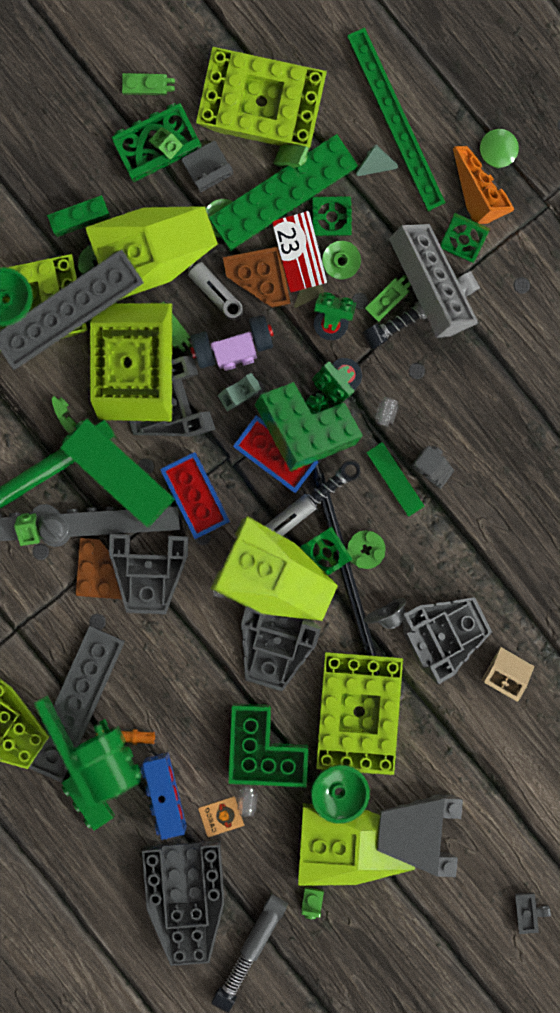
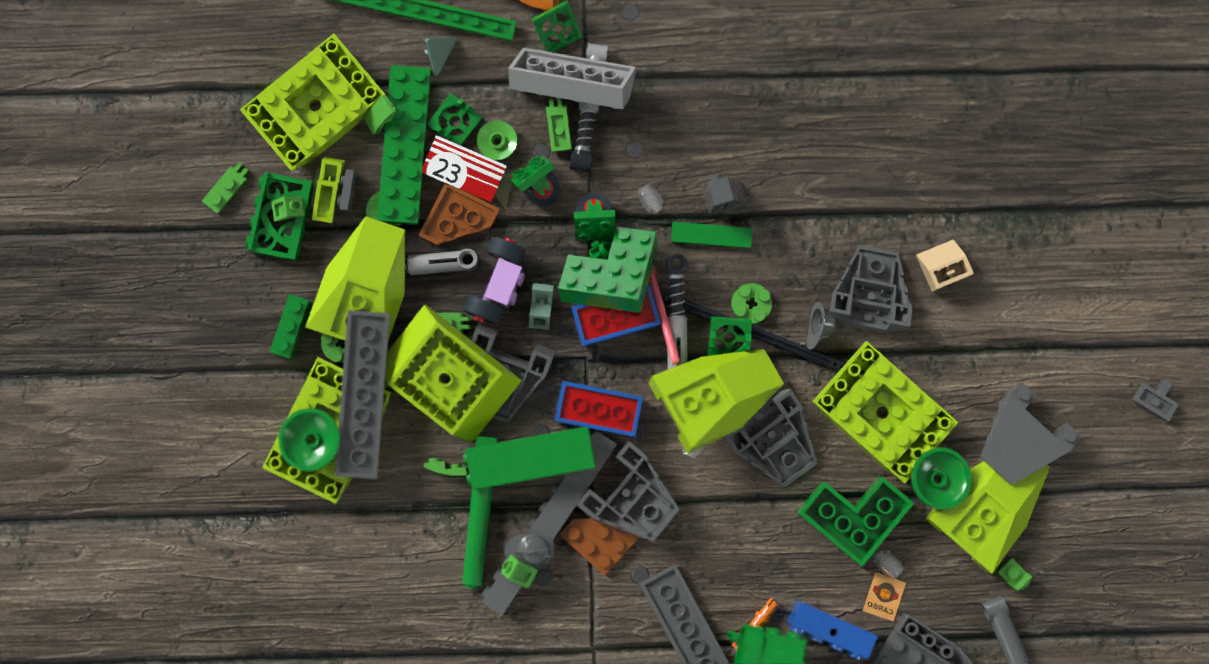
camera: 65 degrees left, 5 degrees down
(204, 161) = (328, 189): none -> lime slope
(302, 490) = (663, 317): none -> coral bar

